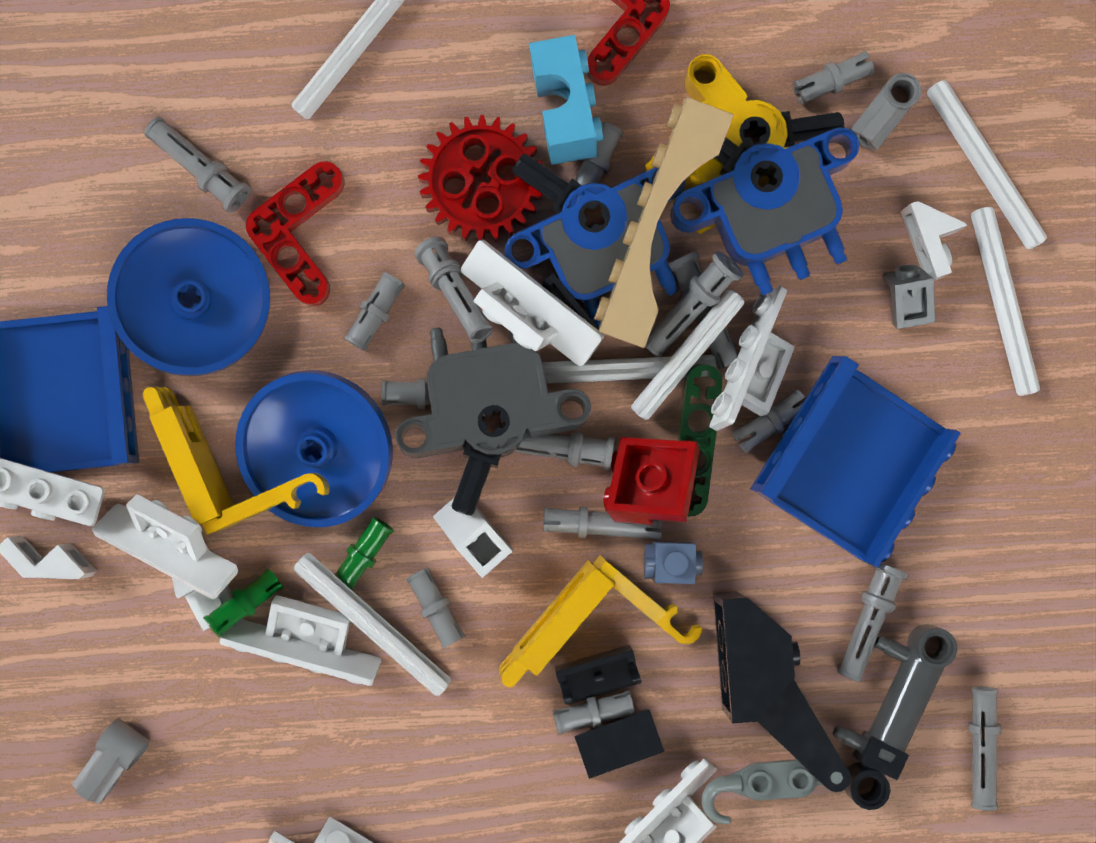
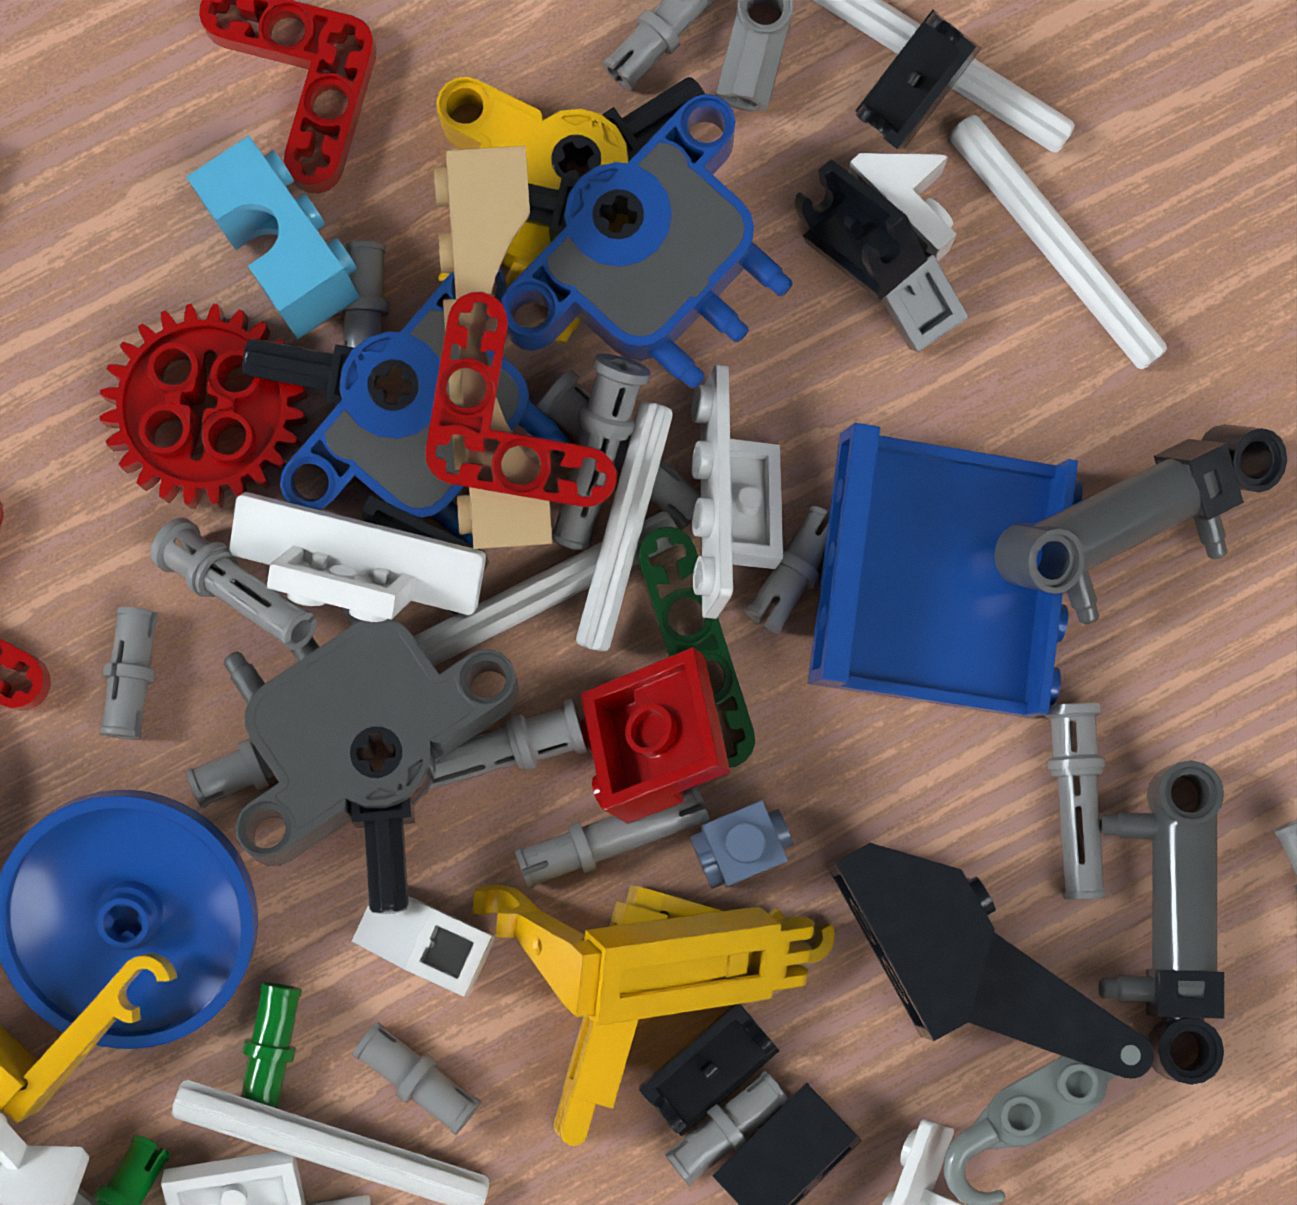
camera: 25 degrees left, 5 degrees down
(594, 609) = (655, 964): none -> yellow hinge
(634, 260) = (475, 422): none -> red beam
(897, 246) = (860, 232): none -> black hinge
(970, 172) = (917, 80): none -> black hinge
(1016, 473) = (1187, 482): none -> dark grey piece

